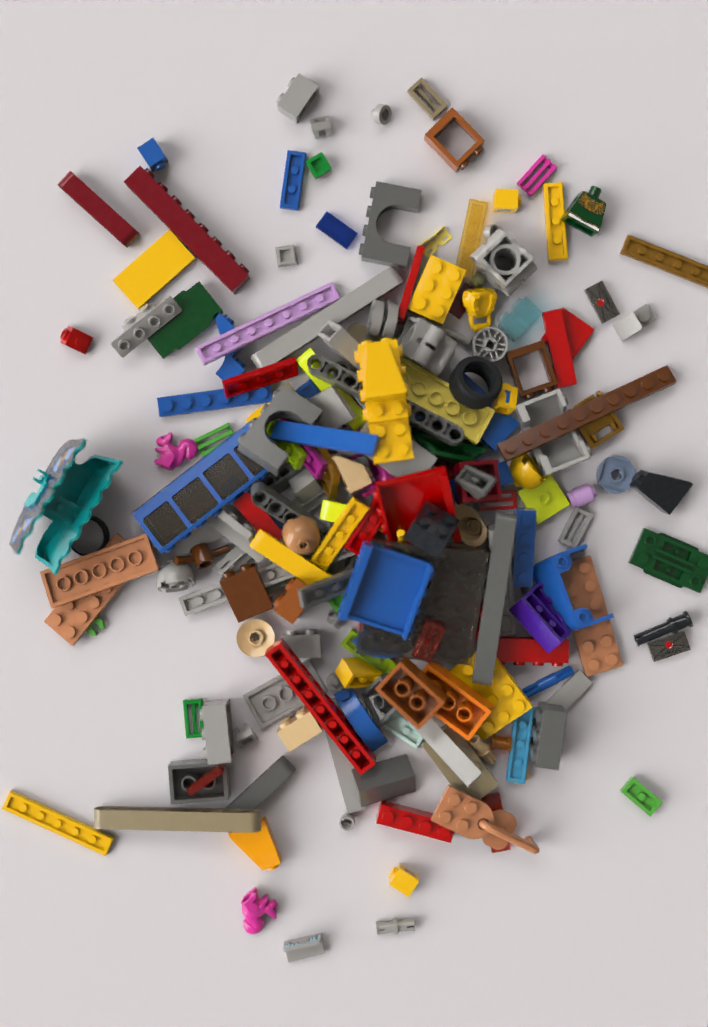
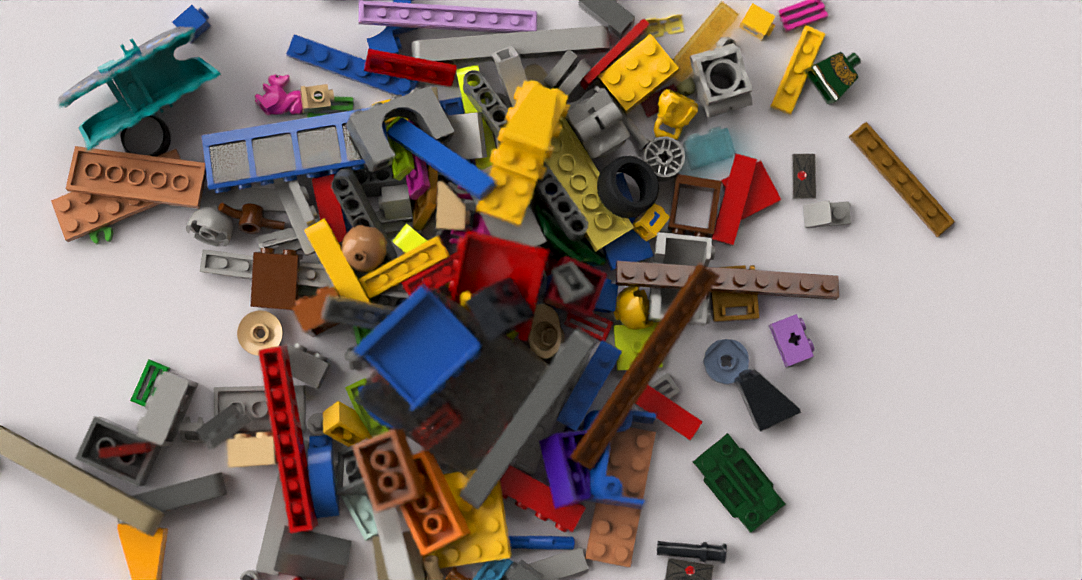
camera: 25 degrees right, 5 degrees down
(75, 429) = (193, 18): none -> blue brick
(199, 445) = (311, 104): none -> tan brick
(267, 723) = (222, 426): none -> dark grey bracket
(562, 513) = (645, 366): none -> reddish brown plate
(581, 495) = (679, 364): lavender brick -> none
(582, 534) = (669, 412): none -> red tile
(647, 432) = (788, 351): none -> medium lavender brick

